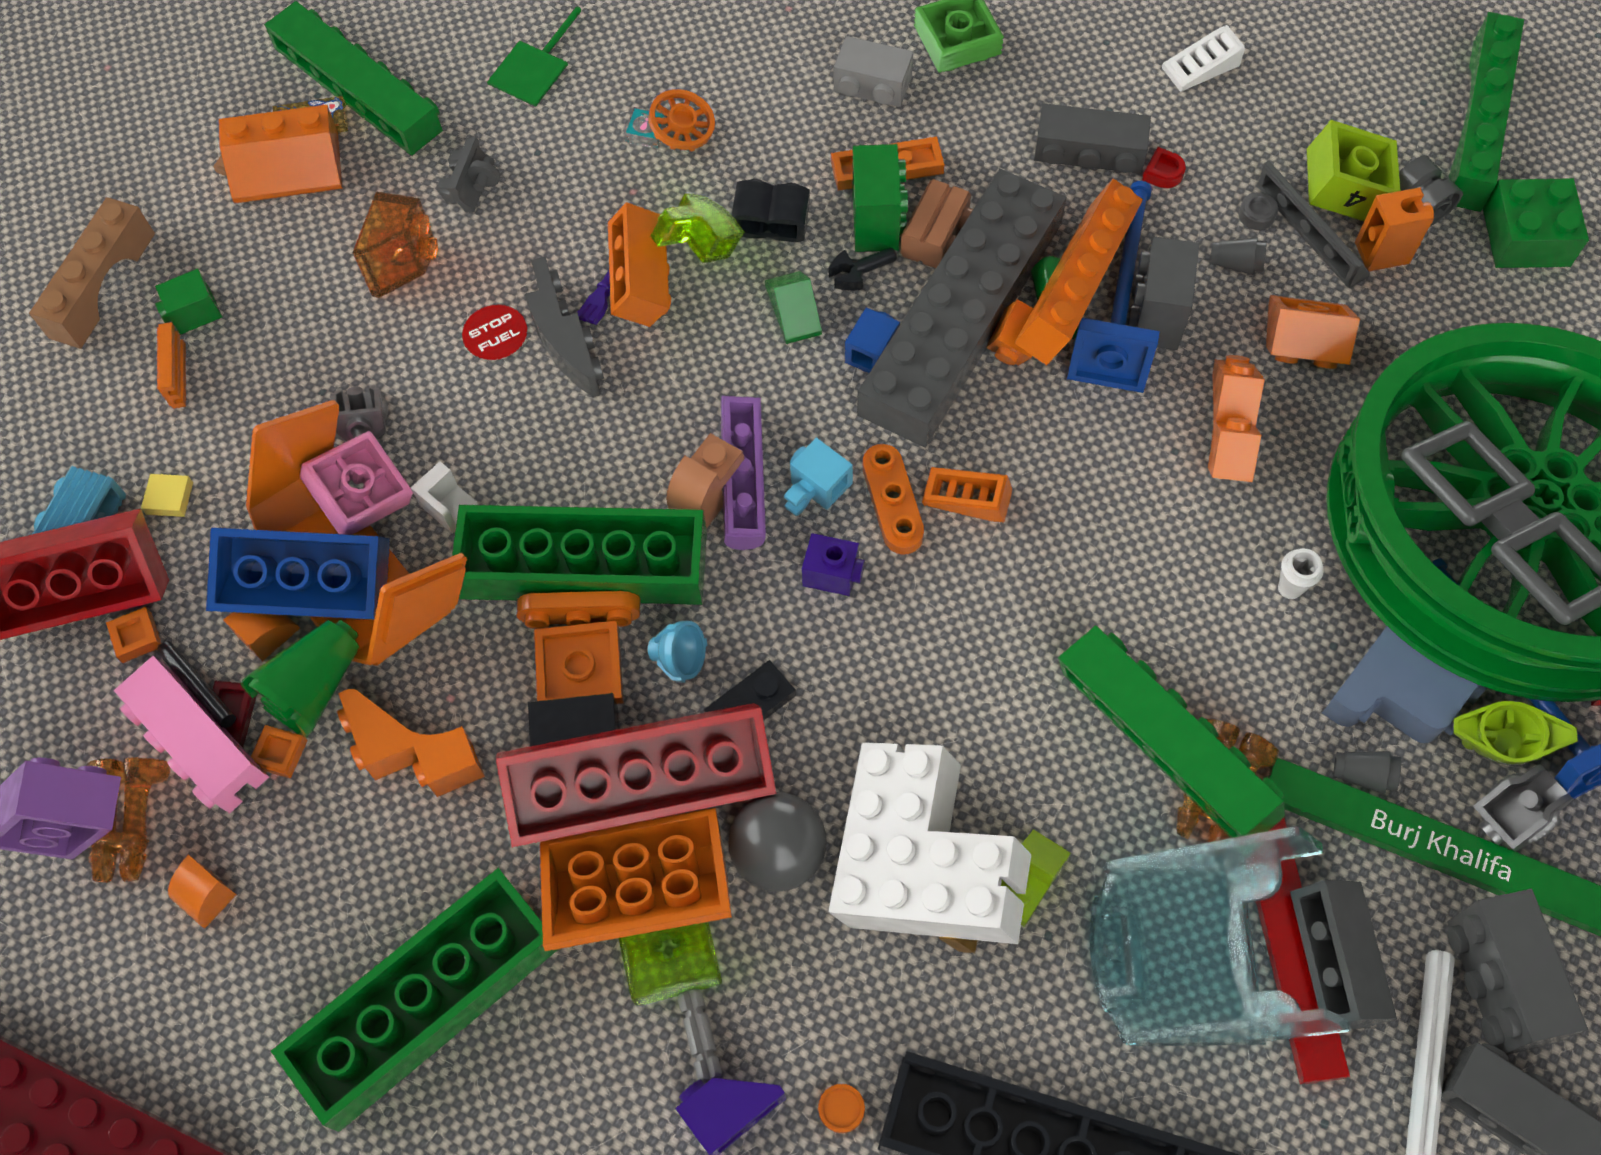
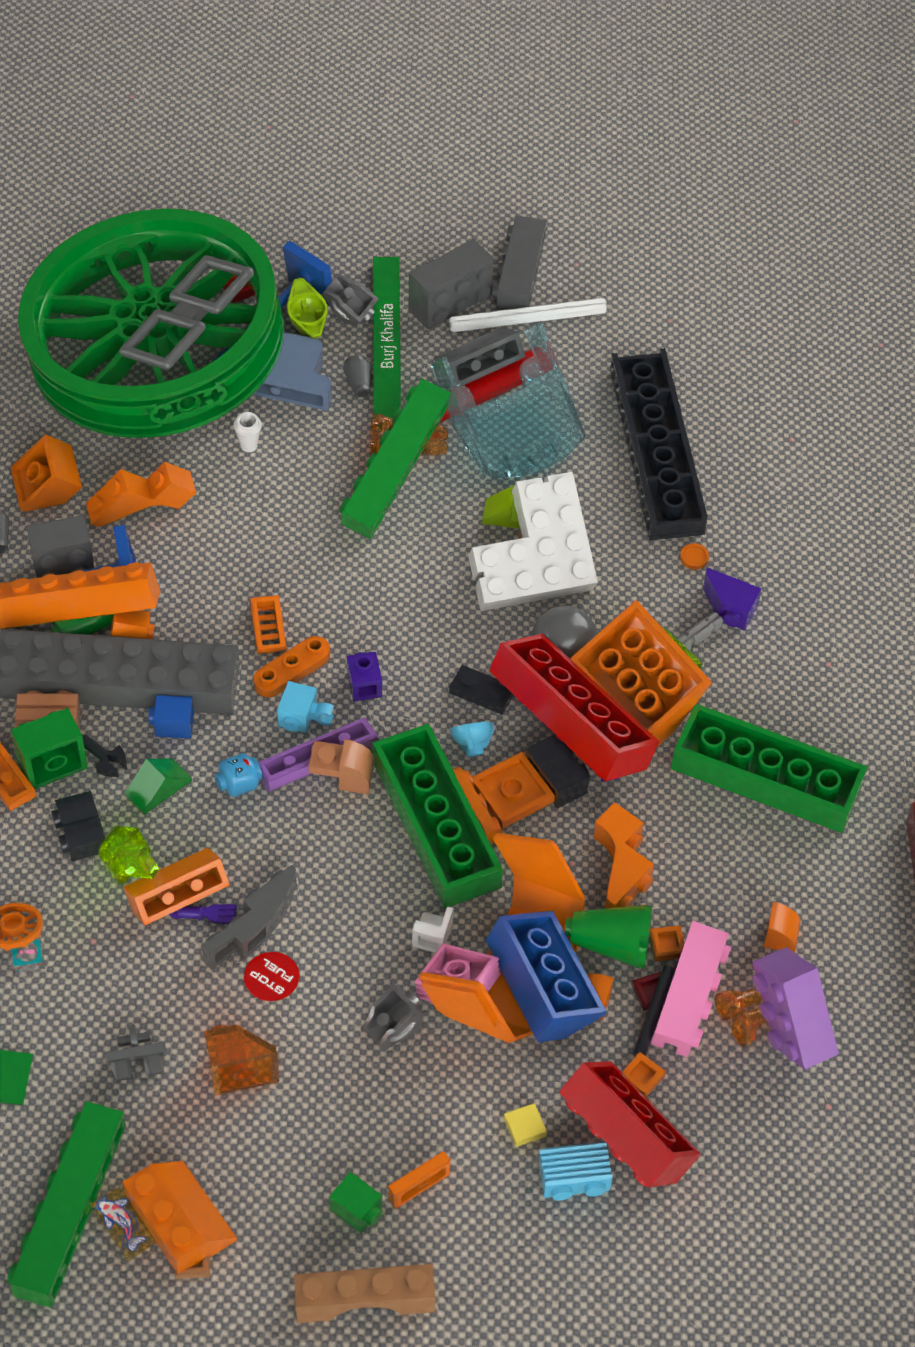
camera: 120 degrees left, 10 degrees down
(755, 374) = (238, 775): none -> dark azure head

